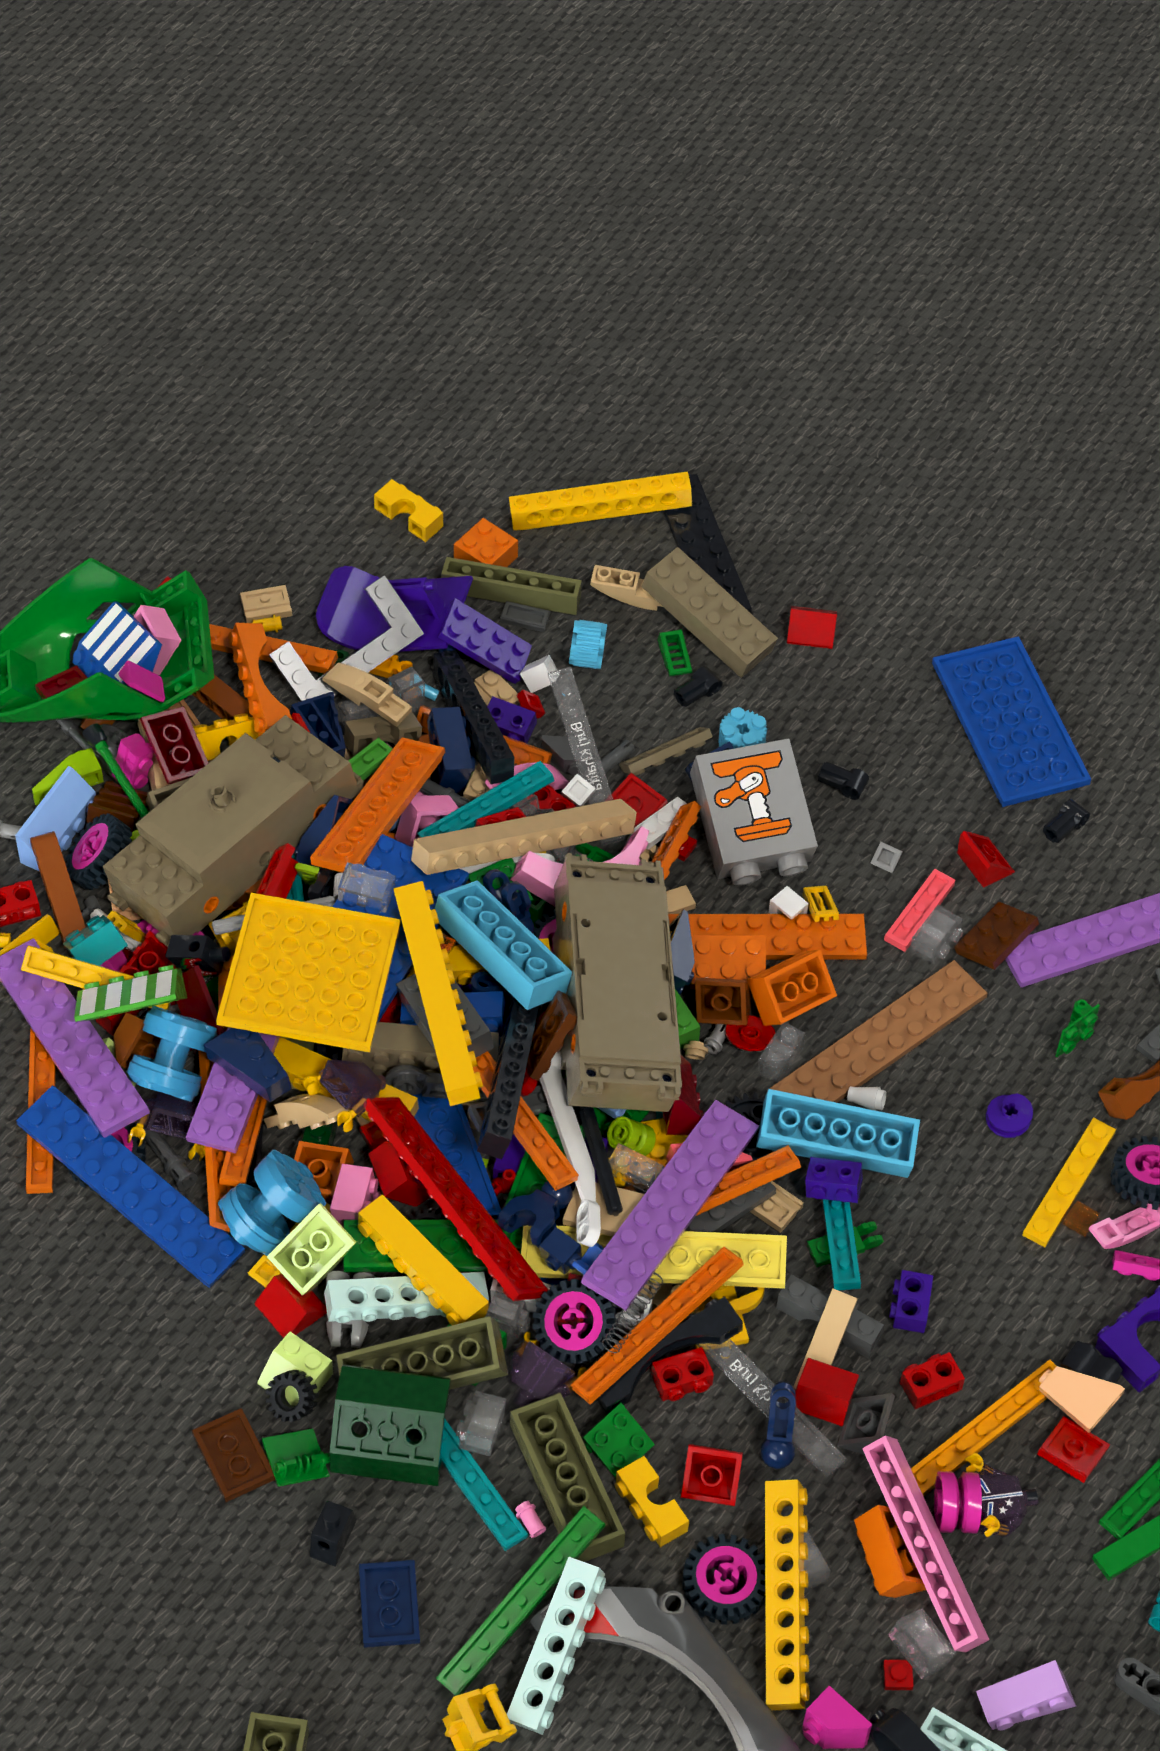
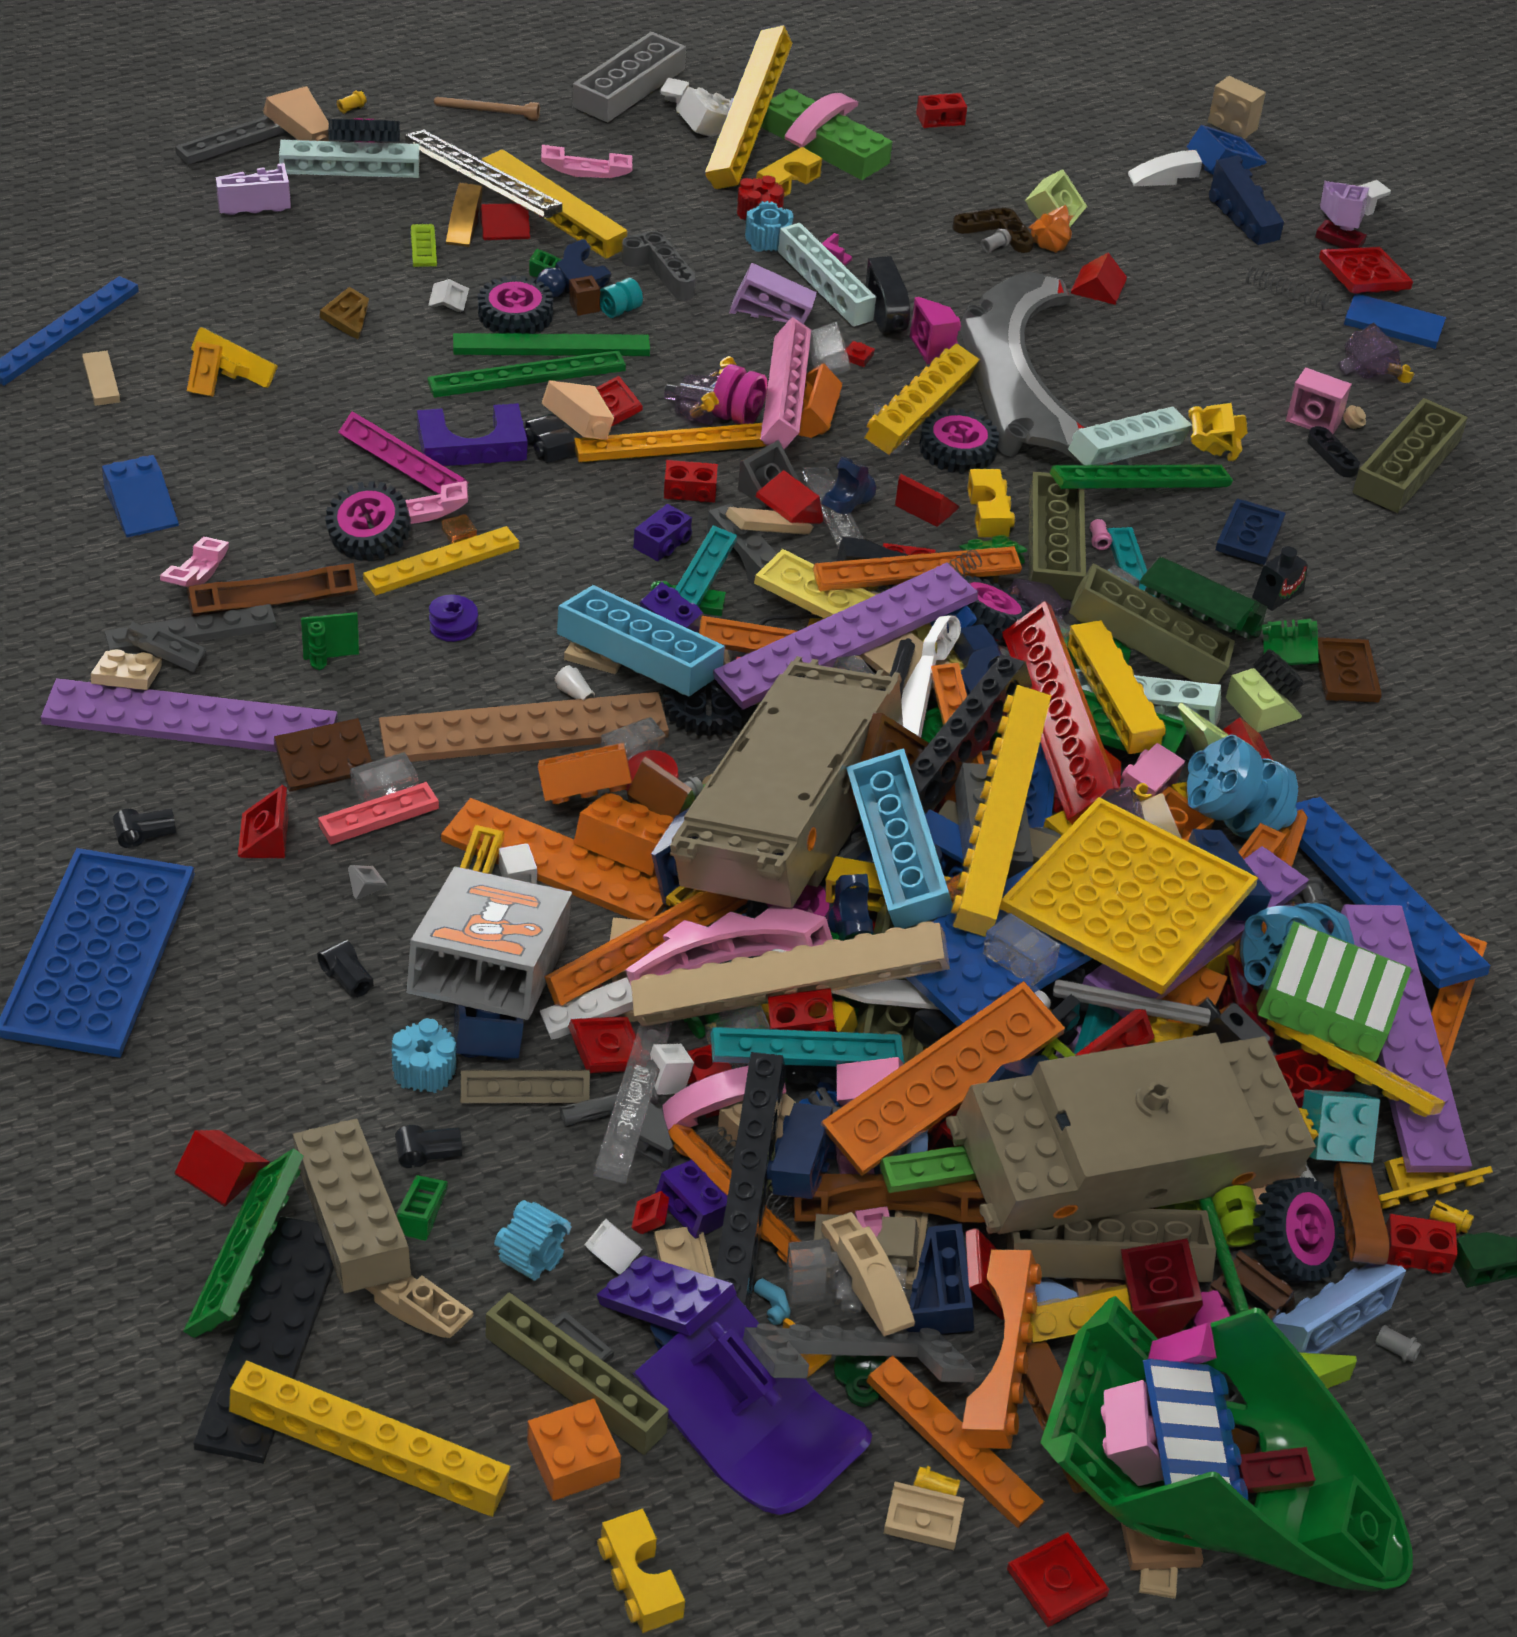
camera: 155 degrees left, 10 degrees down
(754, 572) = (244, 1244): none -> green plate

